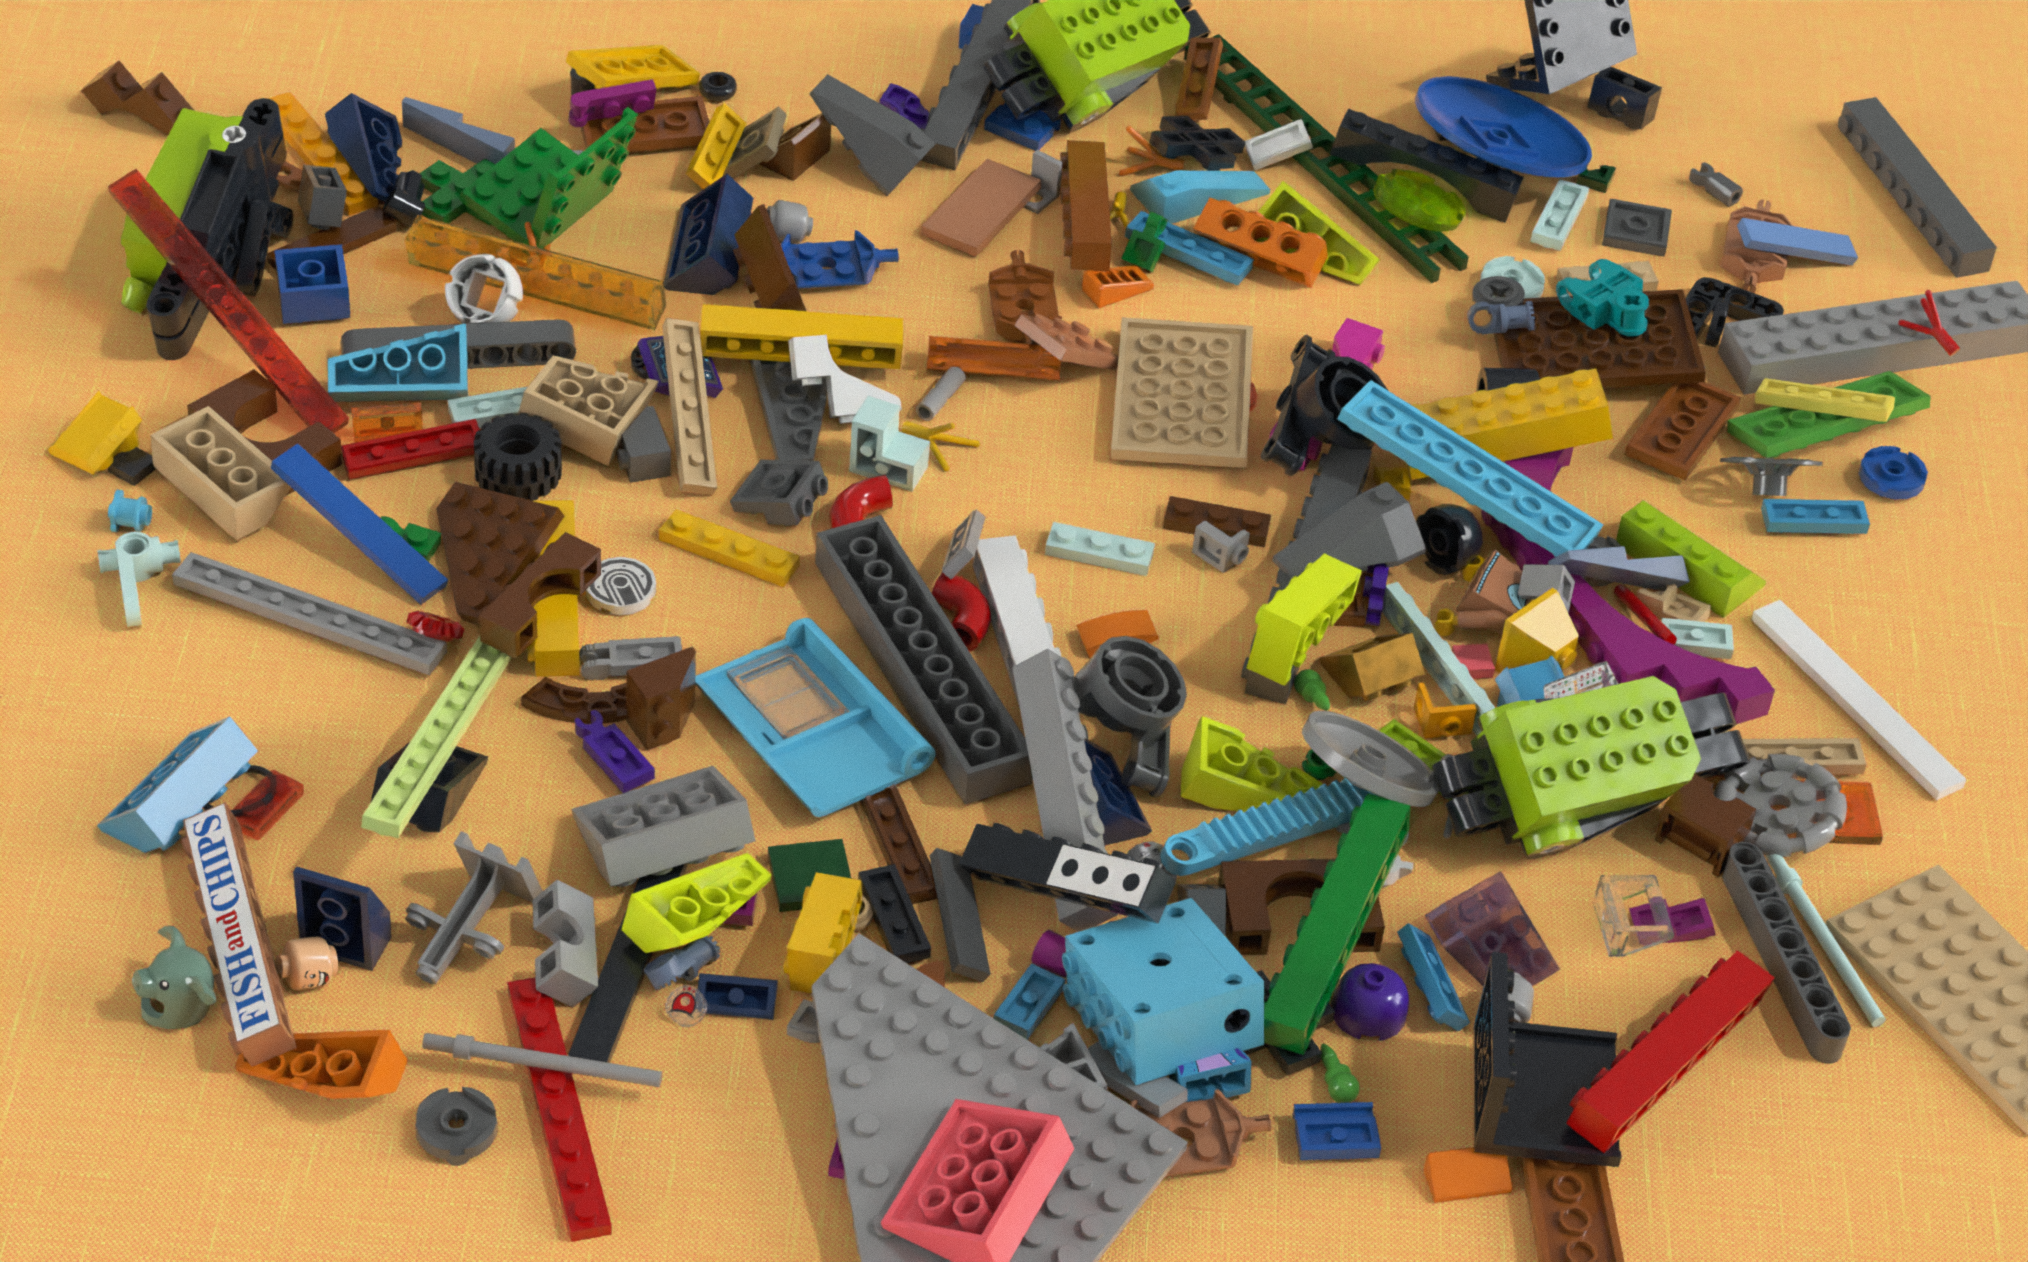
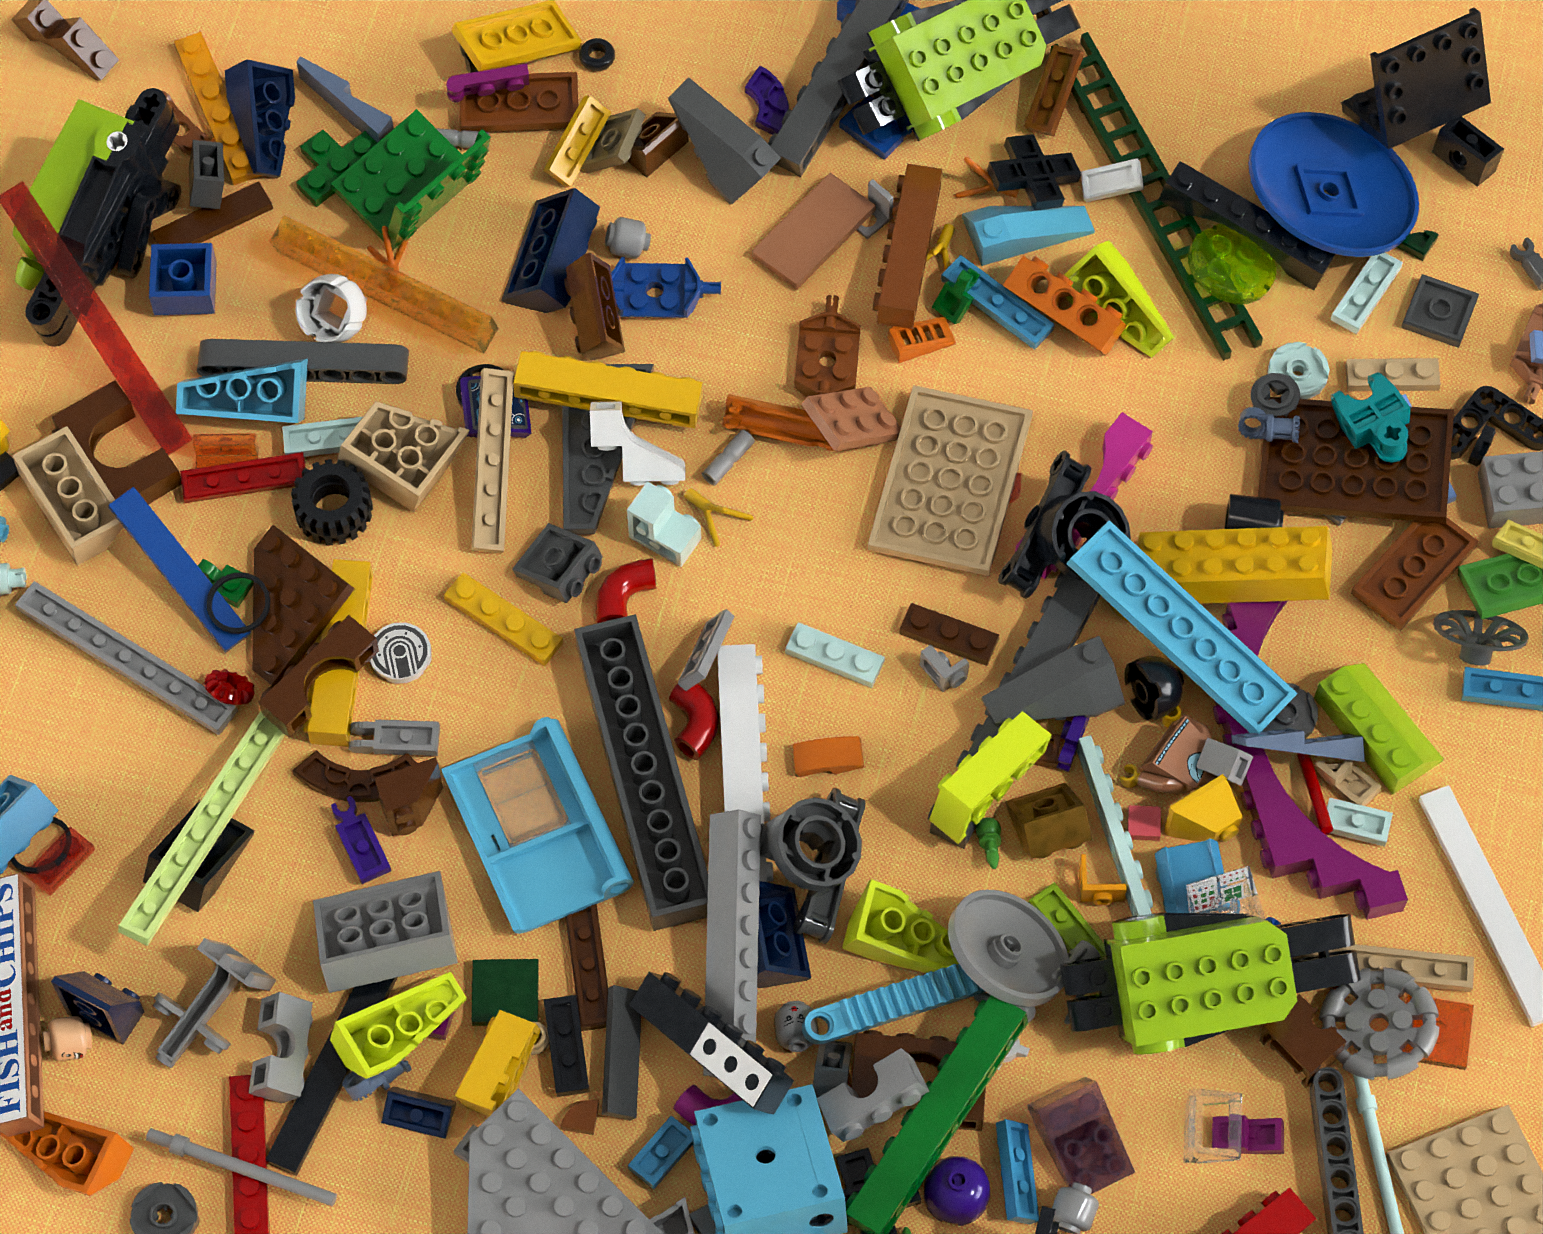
camera: 15 degrees right, 20 degrees up
(405, 199) = (282, 181): black piece -> none
(437, 572) = (234, 576): none -> black piece
(645, 449) = (446, 499): dark grey slope -> none
(686, 1006) = (372, 1120): clear tile -> none
(1289, 887) = (897, 1086): none -> light grey arch

